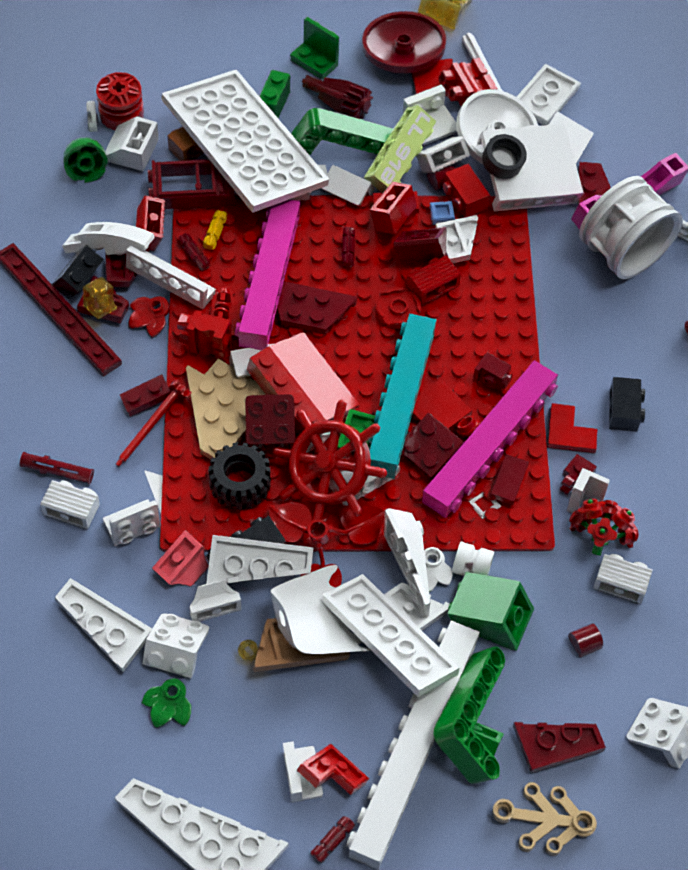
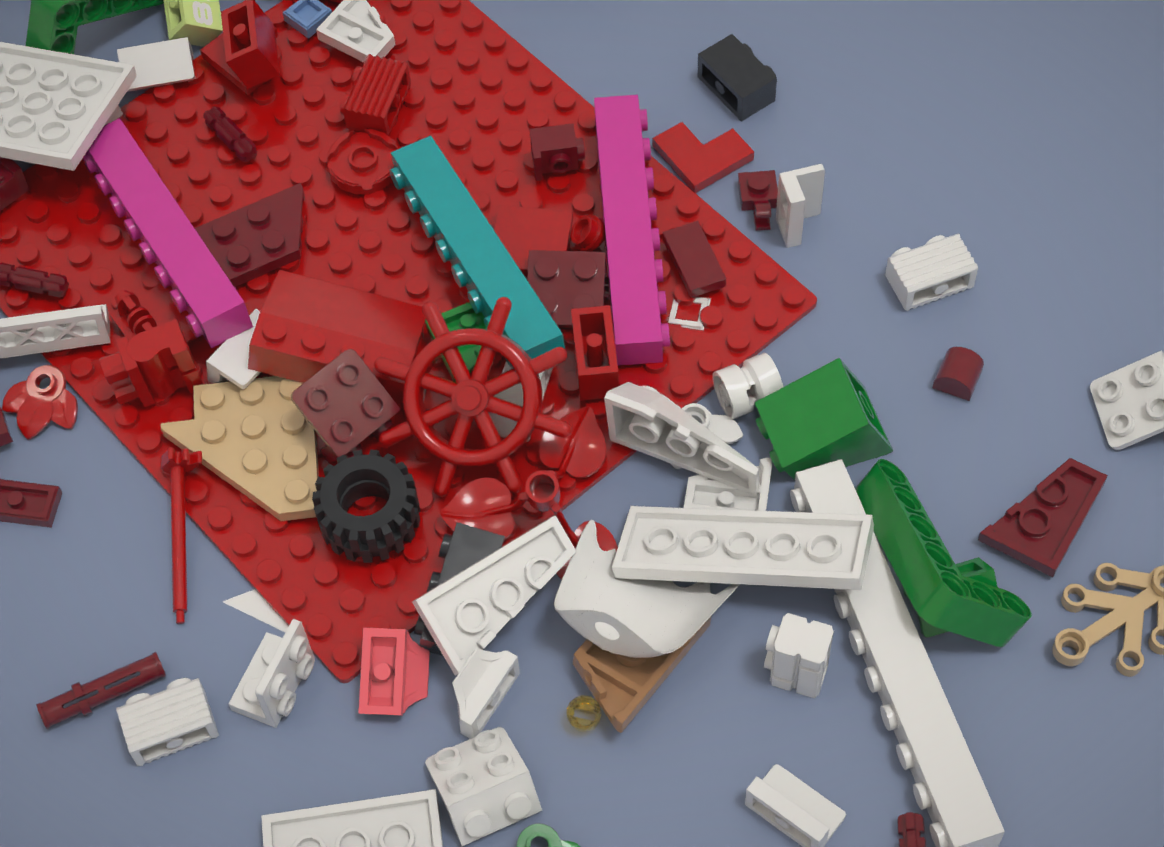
camera: 35 degrees left, 0 degrees up
(145, 395) = (136, 505): dark red plate -> none
(215, 230) = (33, 234): yellow axle -> none
(332, 764) = (825, 765): red tile -> none
(367, 705) = (799, 654): none -> white brick
(409, 487) = (594, 351): none -> red brick
(421, 244) = (324, 64): dark red slope -> none
(602, 531) = (876, 223): red plant -> none

